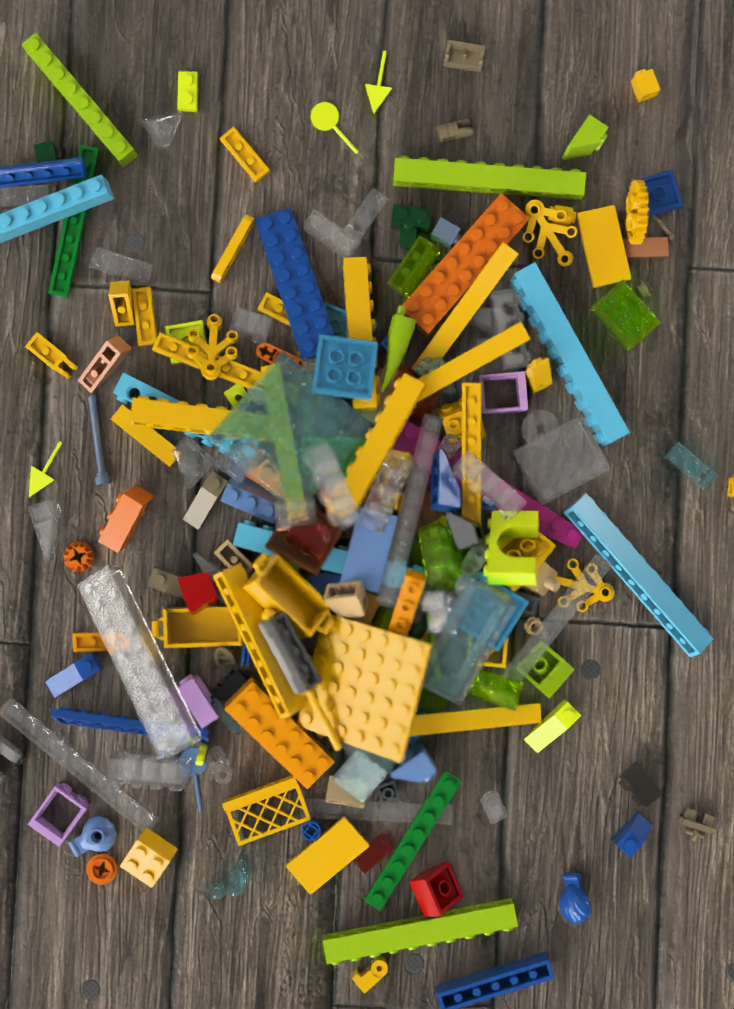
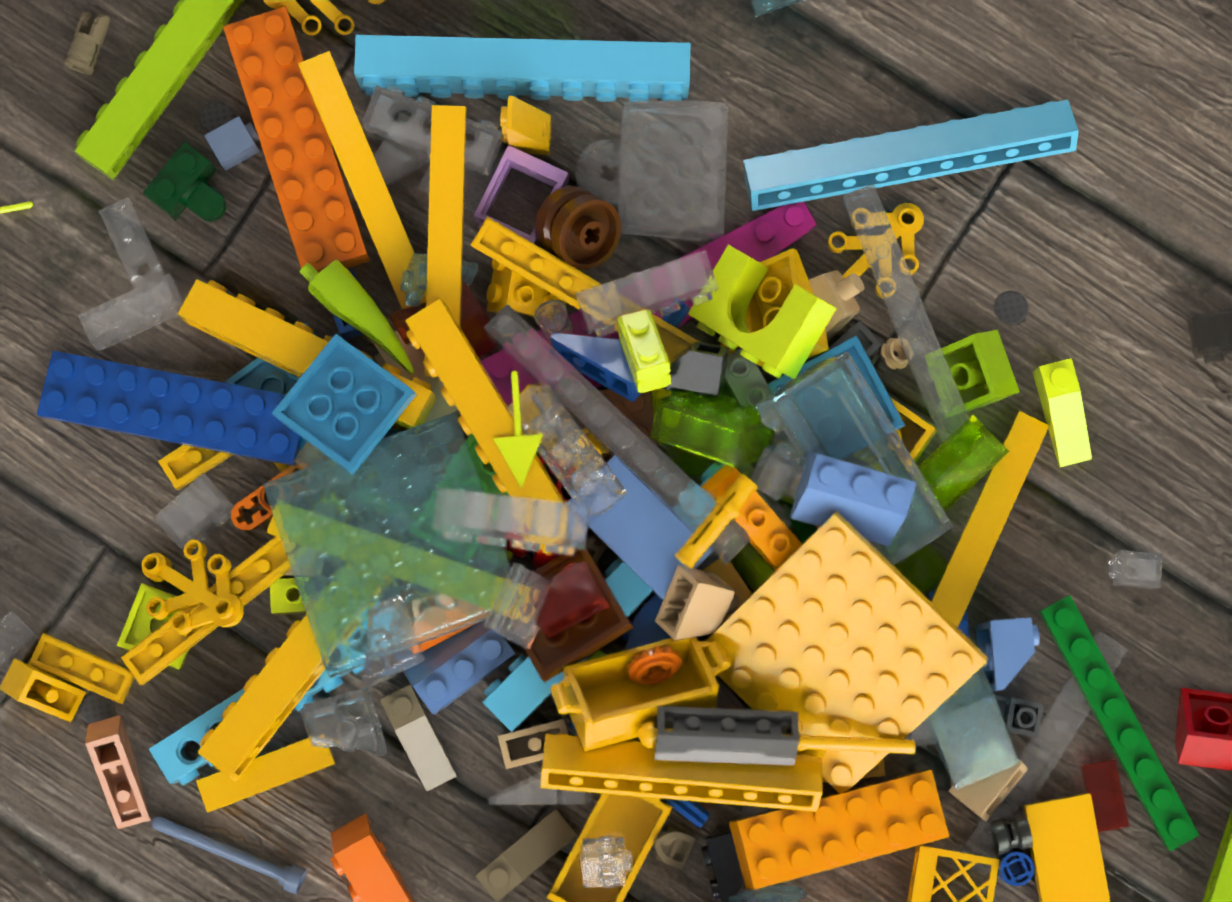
camera: 55 degrees left, 5 degrees down
(49, 354) = (52, 848): yellow hinge -> none
(196, 627) = (605, 862): none -> clear brick
(198, 591) = (551, 824): red torso -> none
(233, 248) = (62, 473): yellow beam -> none
(304, 597) = (654, 666): none -> orange gear
(326, 818) = (1011, 834): none -> pearl dark grey wheel
(372, 468) = (518, 449): none -> neon yellow piece
(392, 587) = (725, 509): none -> yellow pin
(413, 267) = (255, 219): clear neon green brick -> none
(448, 655) = (865, 497): none -> medium blue slope
(458, 501) = (644, 351): none -> neon yellow brick
(503, 430) = (578, 227): none -> reddish brown wheel

